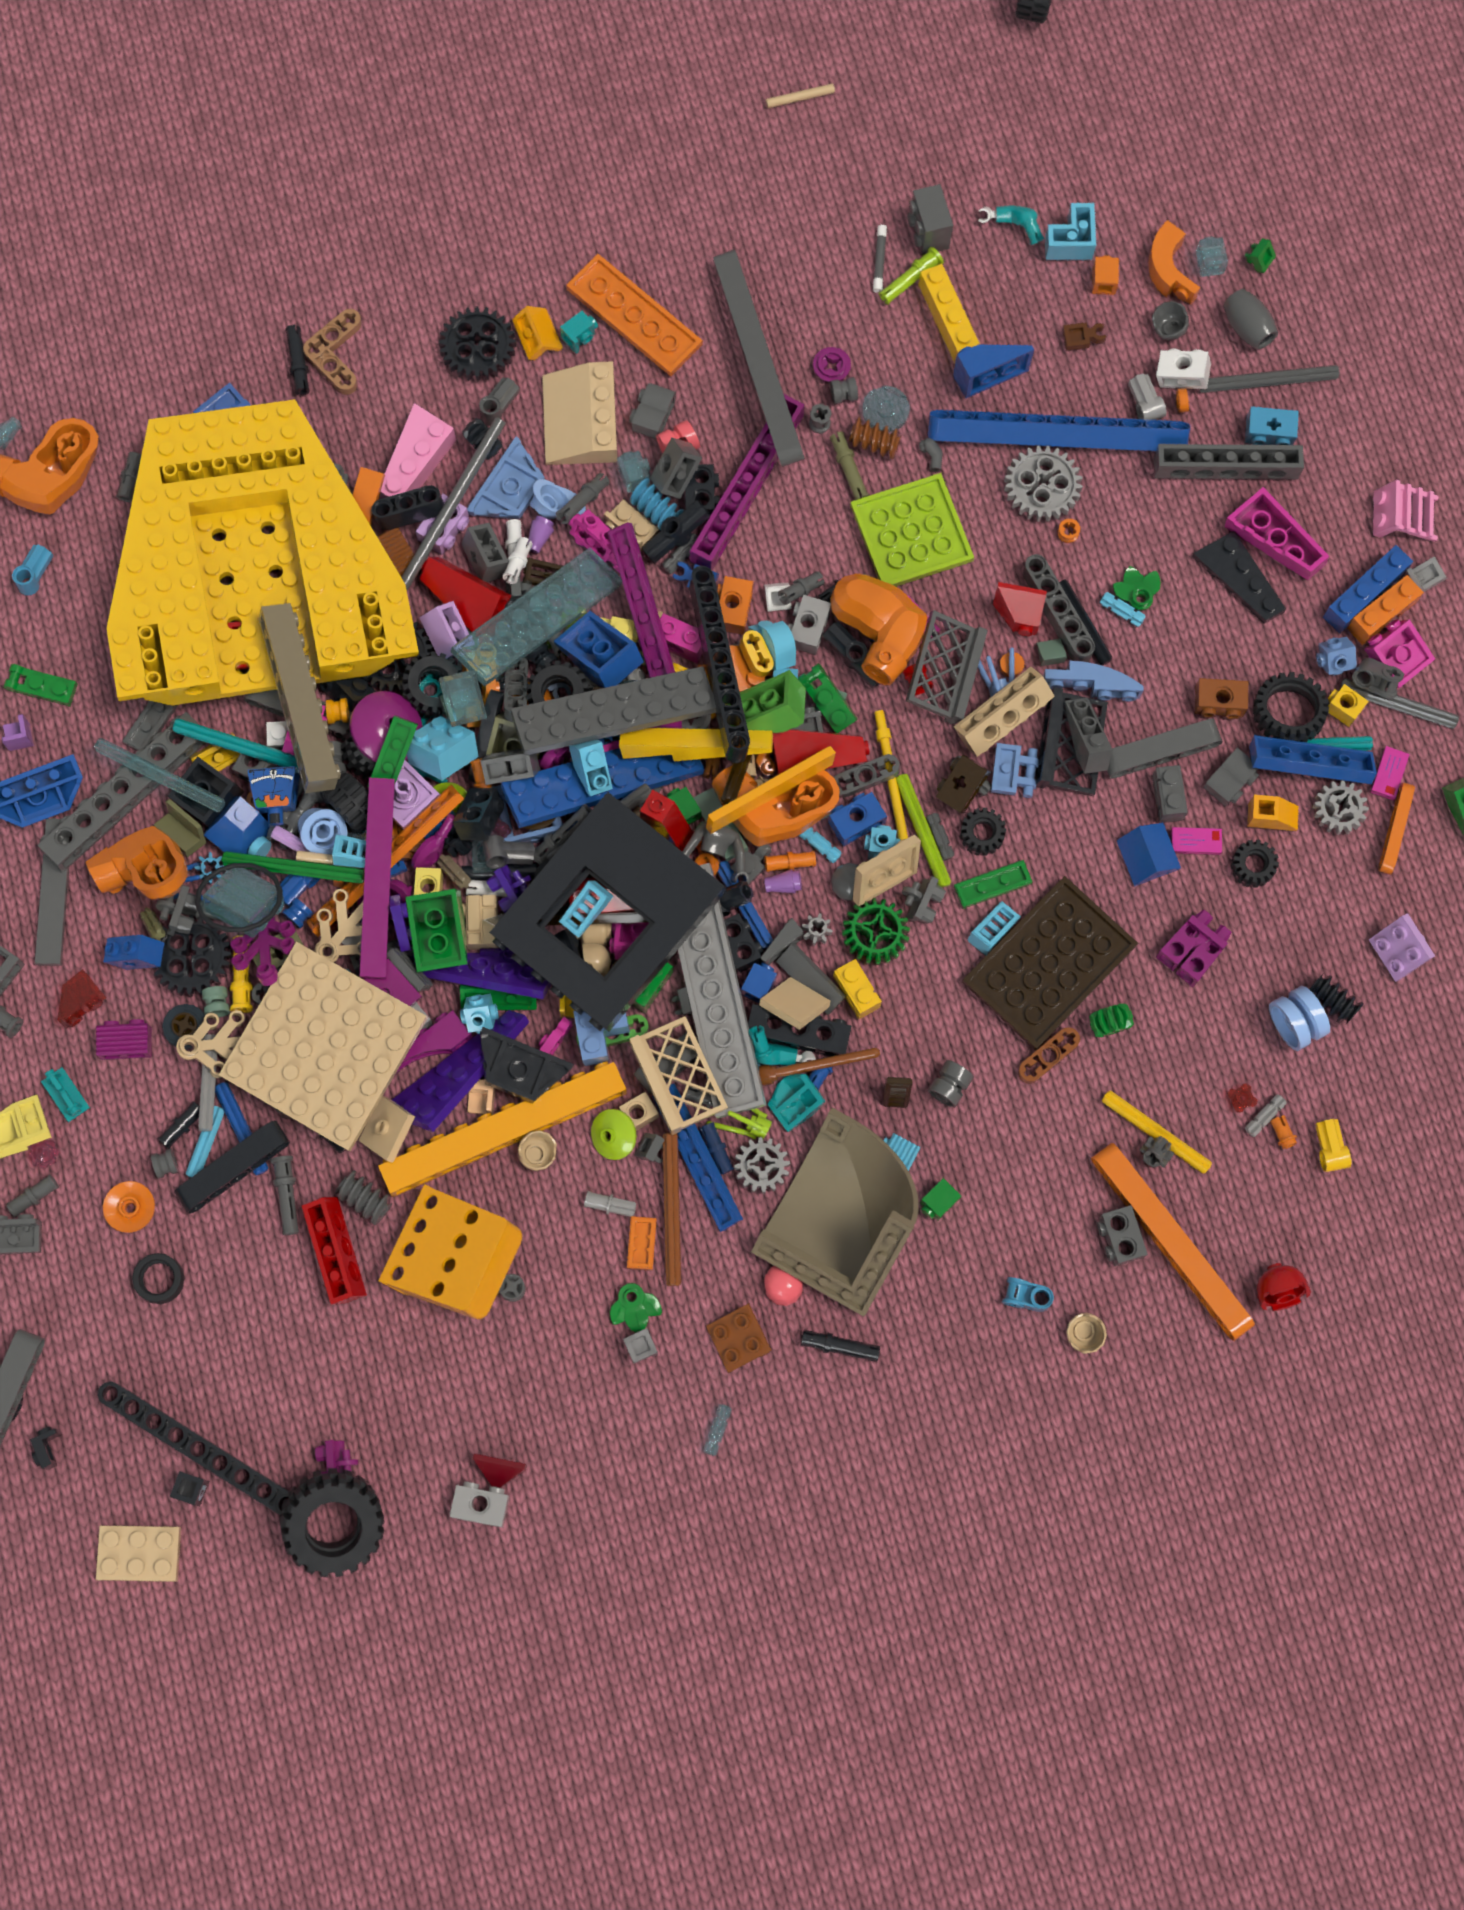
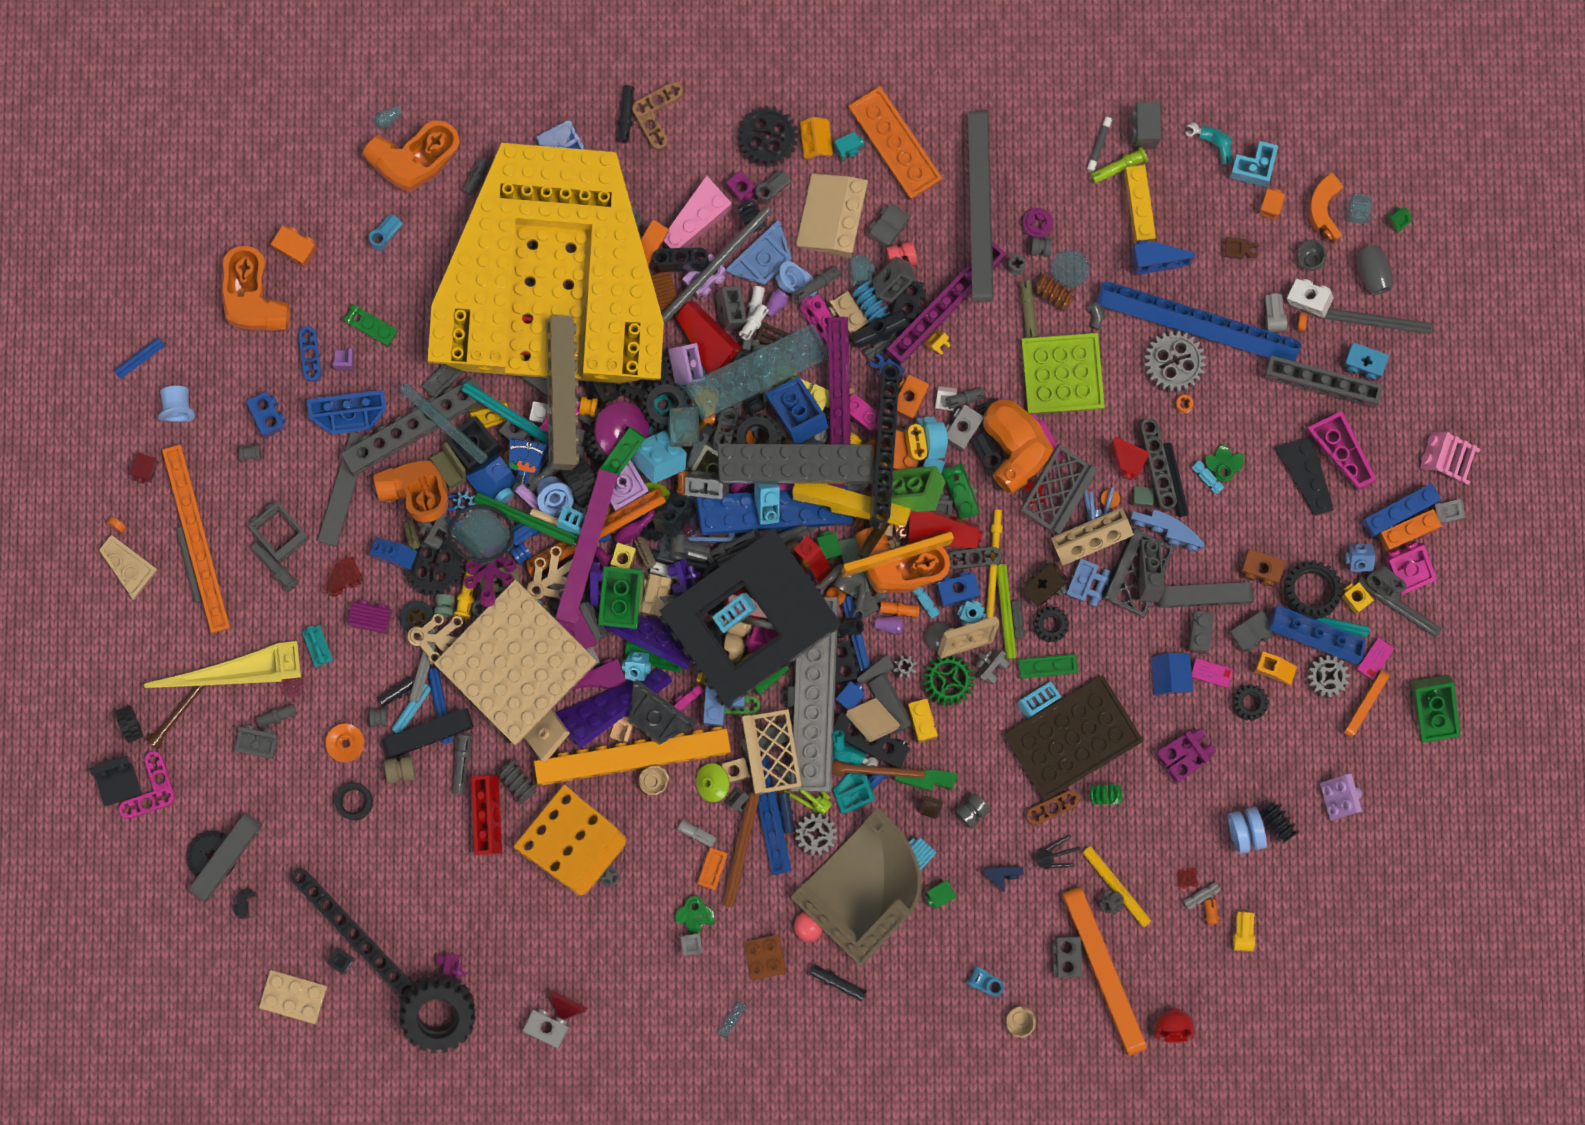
camera: 15 degrees right, 5 degrees up
(206, 1223) = (399, 770): none -> dark tan wheel
(457, 401) = (740, 179): none -> magenta brick
(747, 531) = (936, 340): none -> yellow tile
(890, 1056) = (932, 777): none -> green slope
(1005, 1156) = (997, 875): none -> dark blue slope
(1058, 1119) = (1046, 858): none -> black plant

